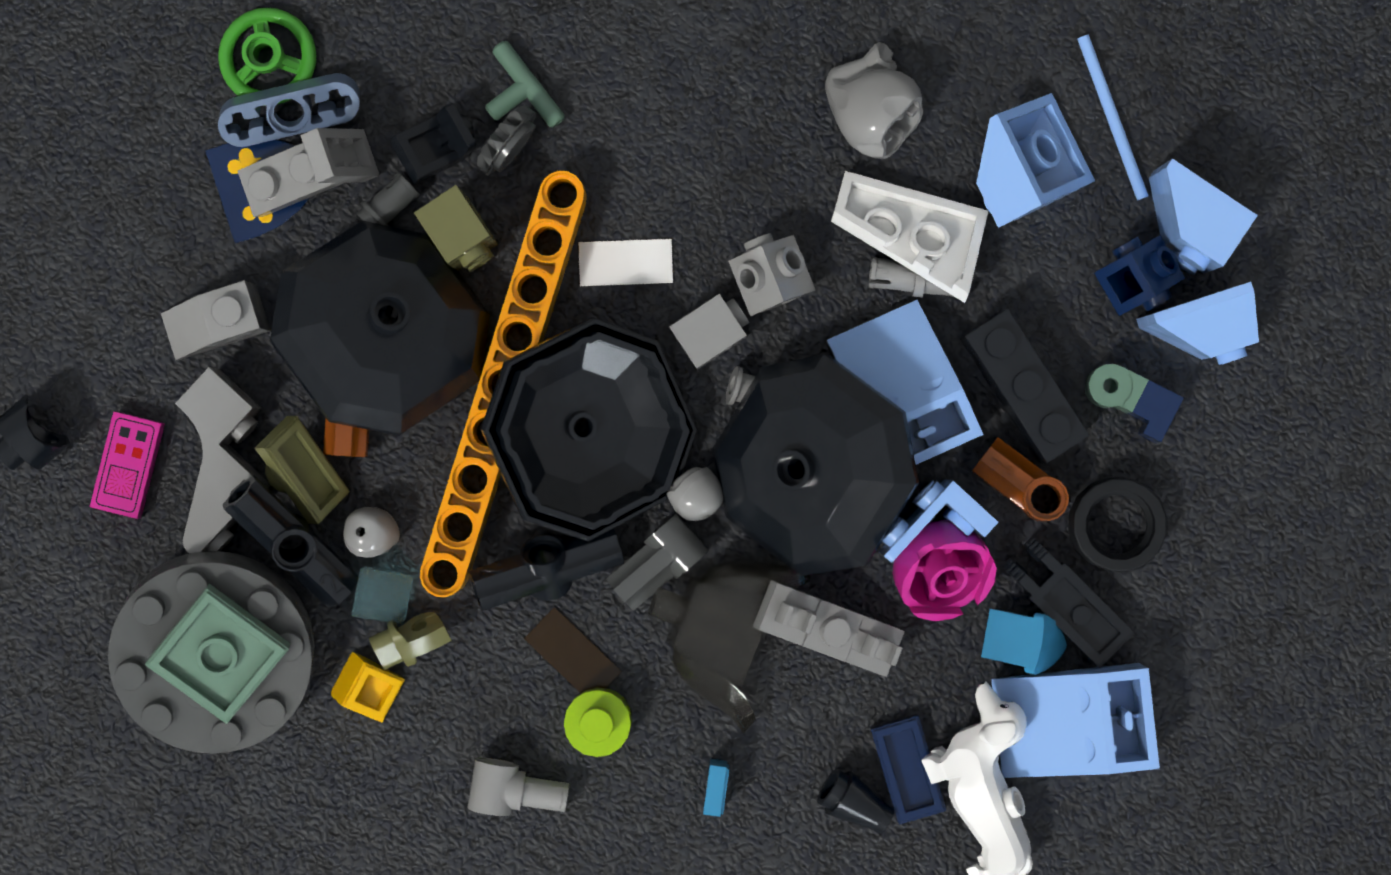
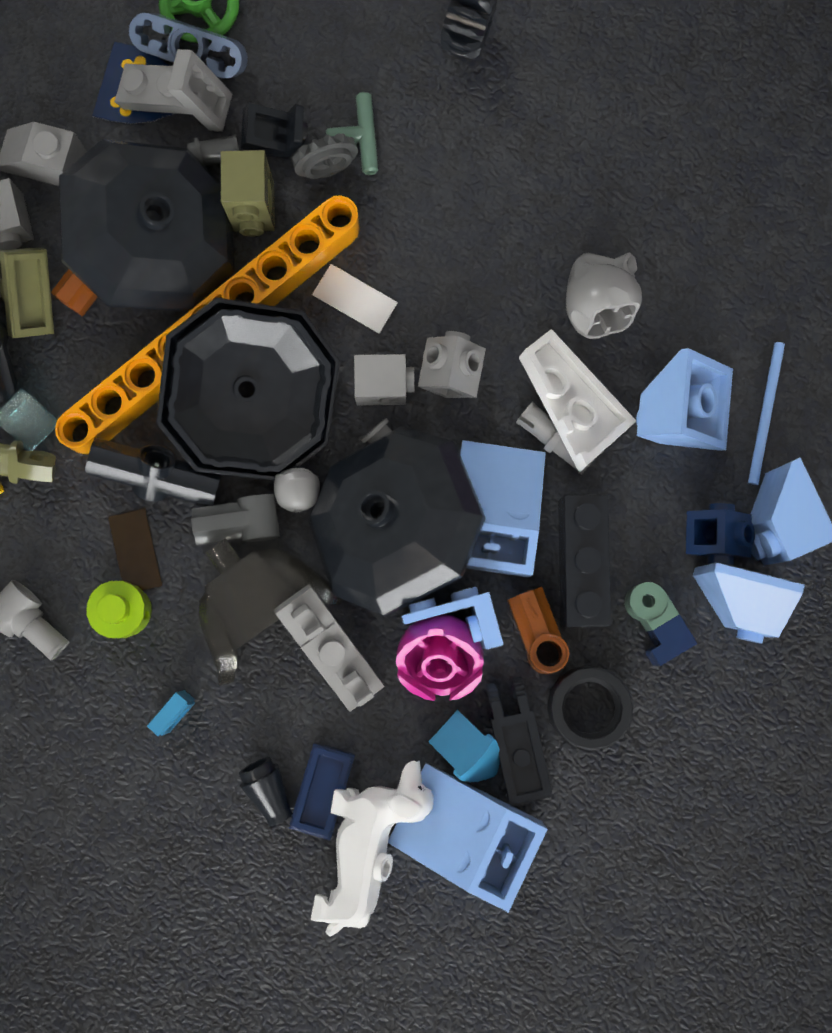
camera: 30 degrees right, 5 degrees down
(370, 532) = (47, 369): light grey piece -> none

